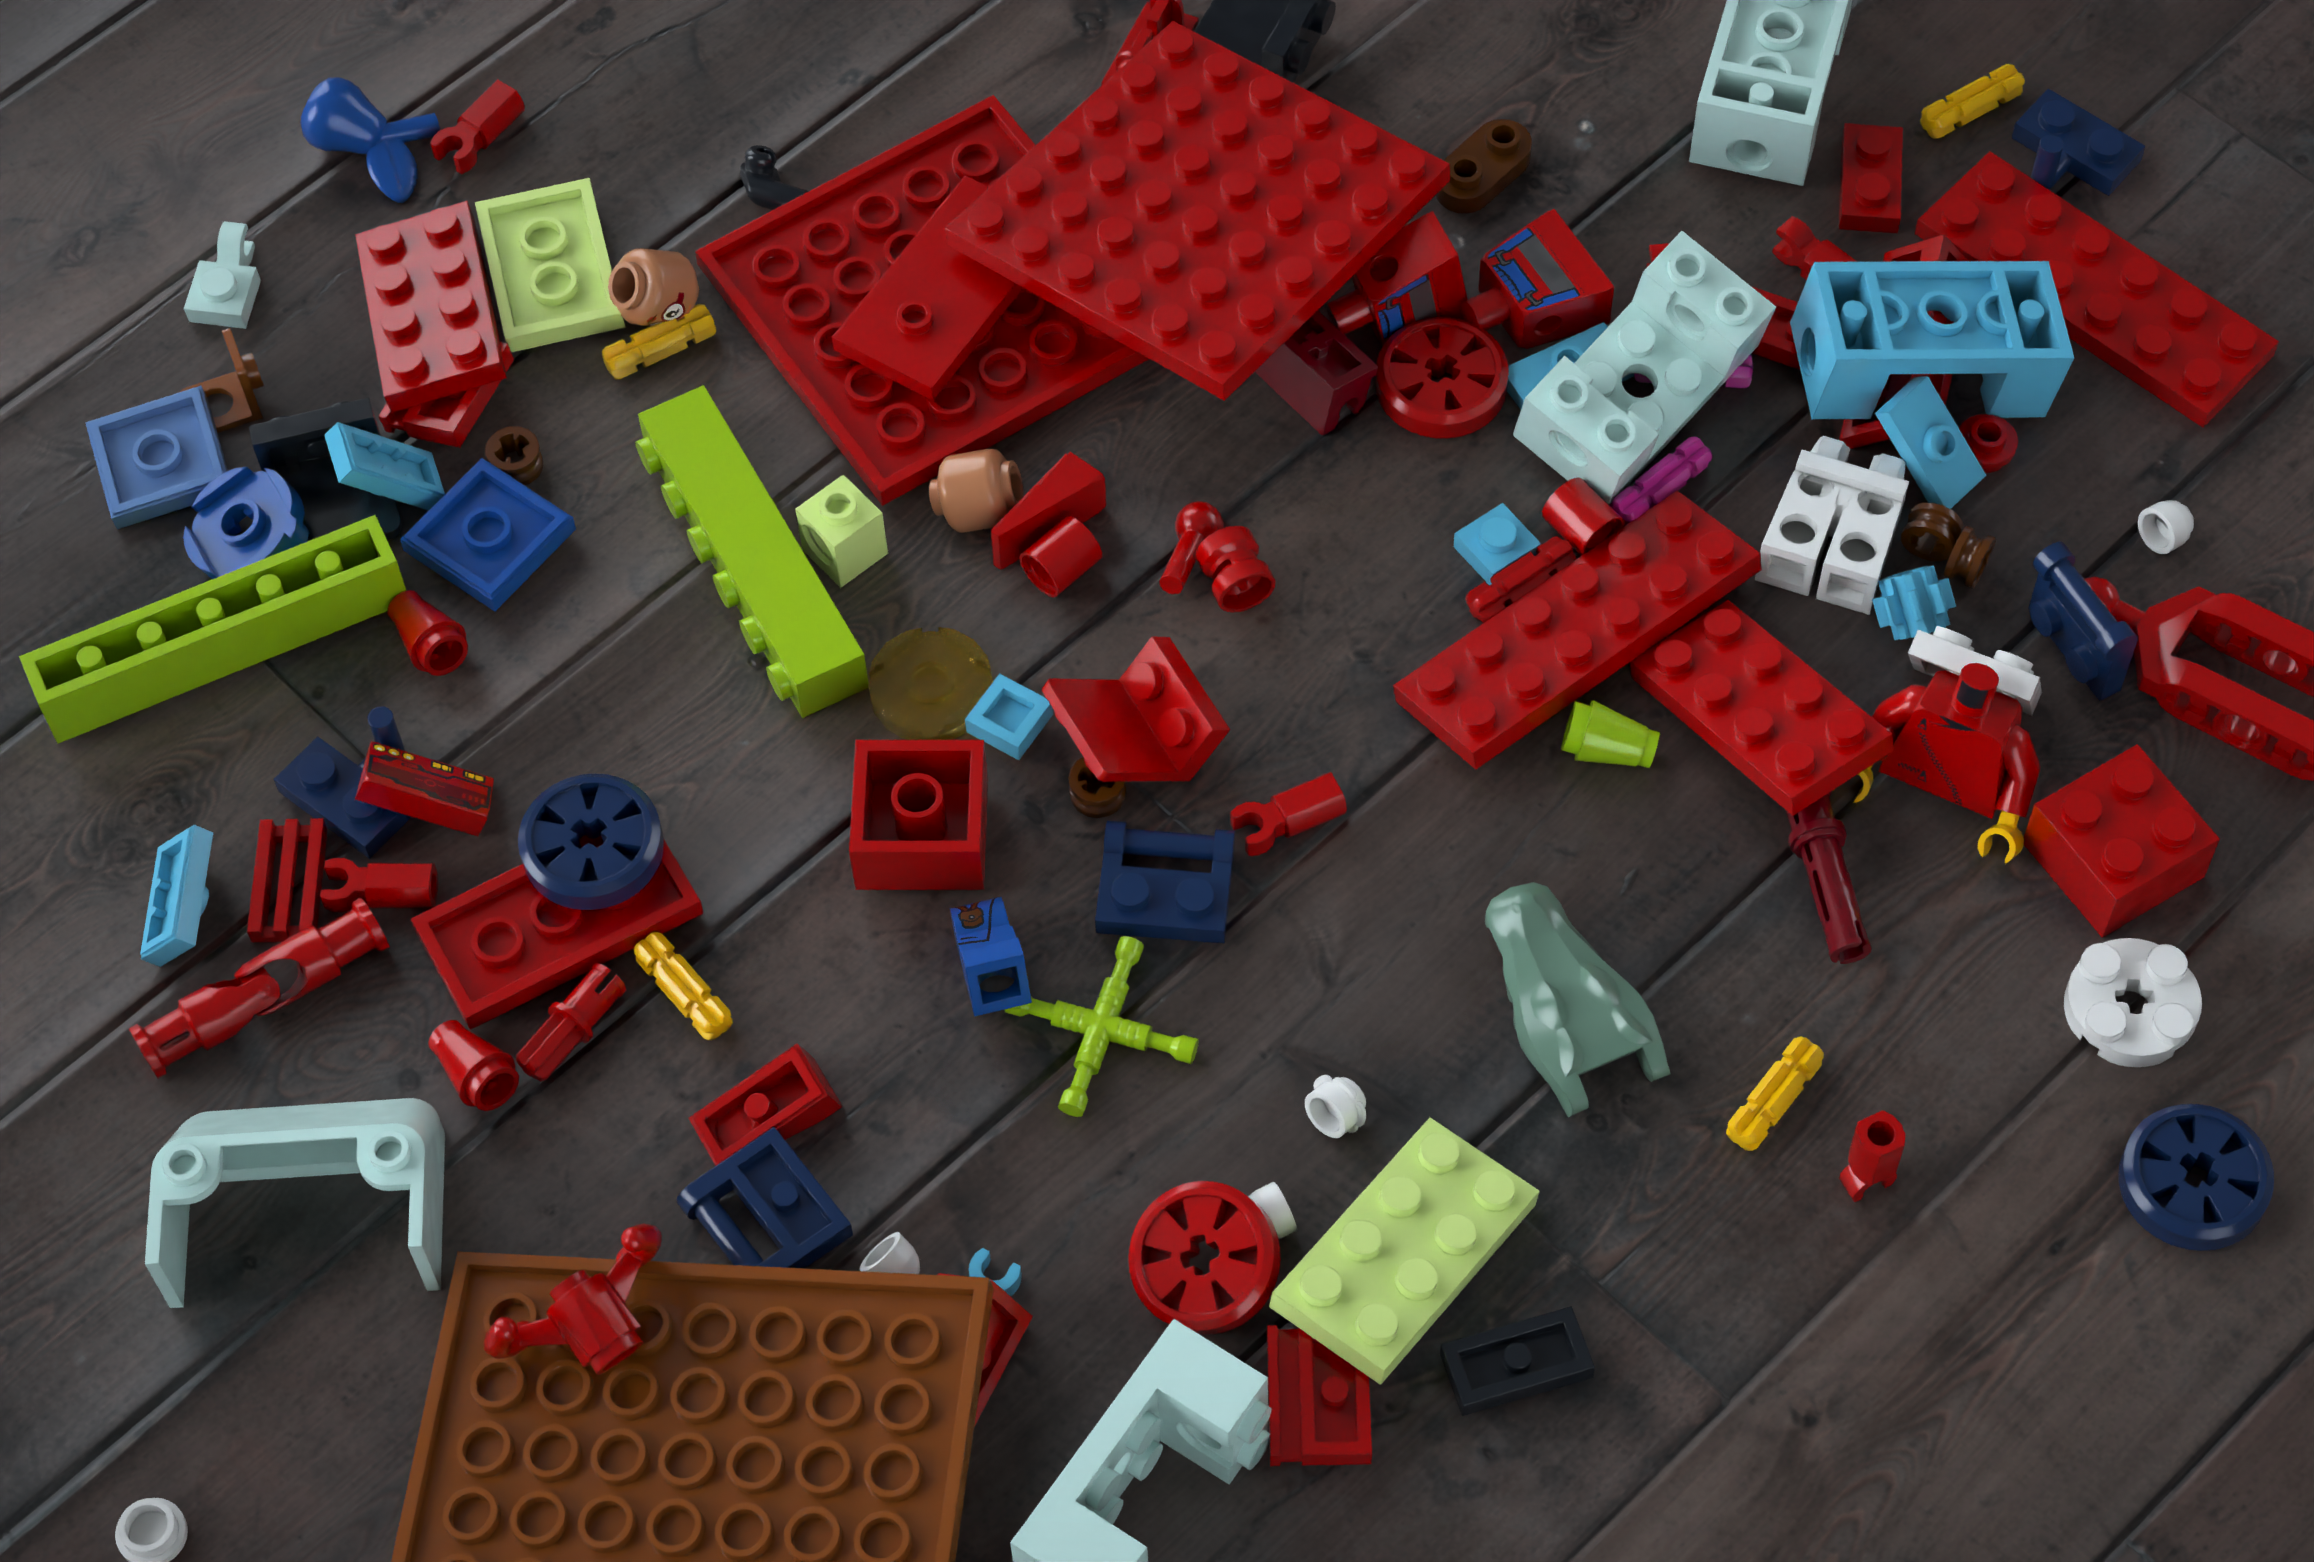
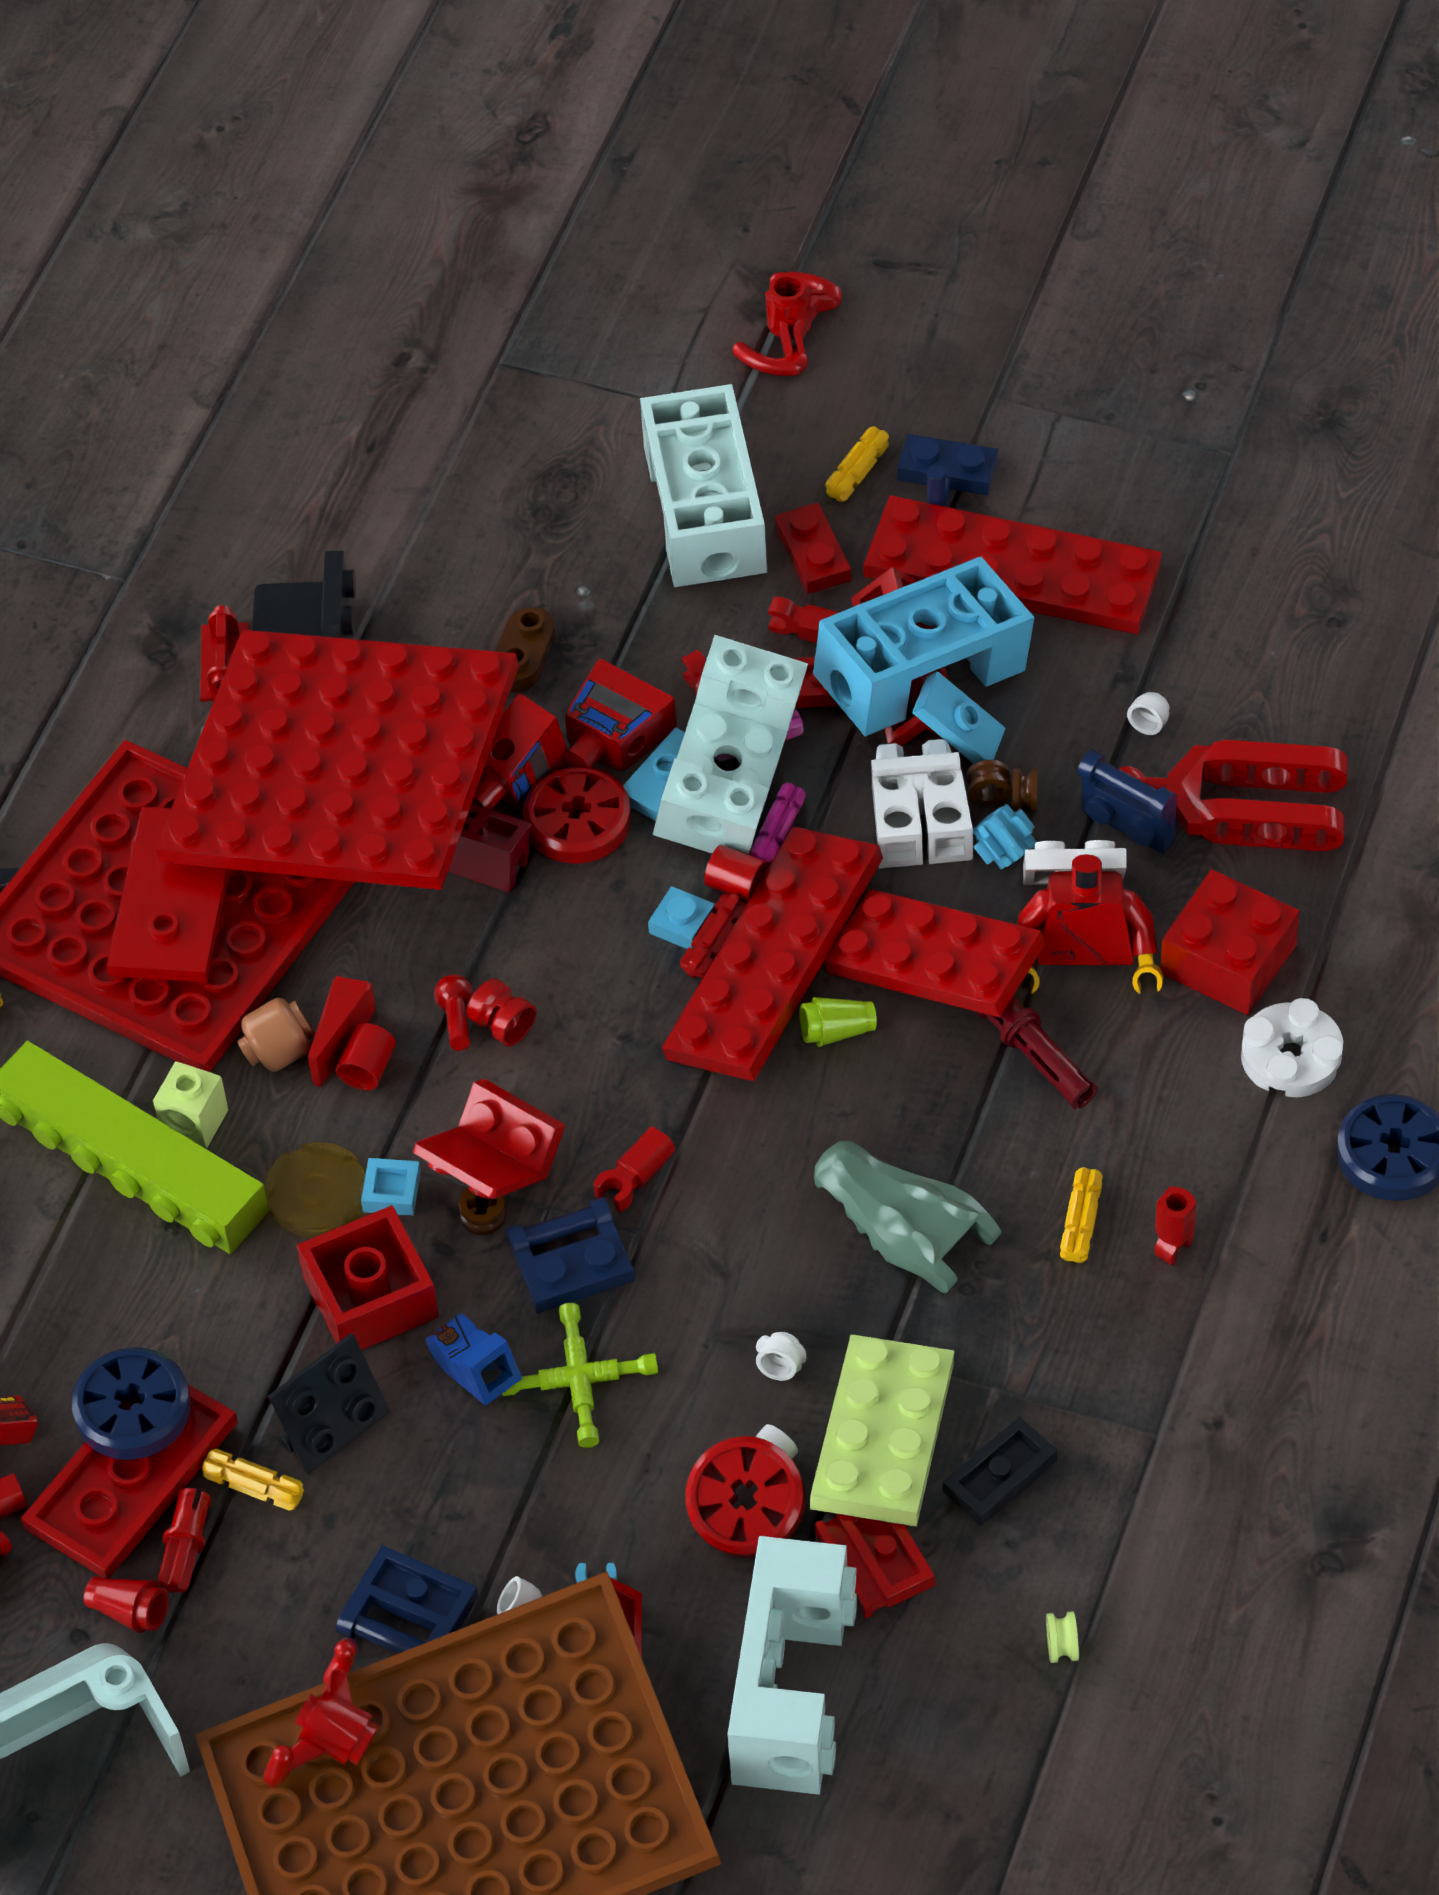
camera: 25 degrees left, 5 degrees down
(782, 1094) = (369, 1523): red slope -> none
(799, 937) = (328, 1404): none -> black hinge
(1994, 454) = (1006, 700): red plate -> none

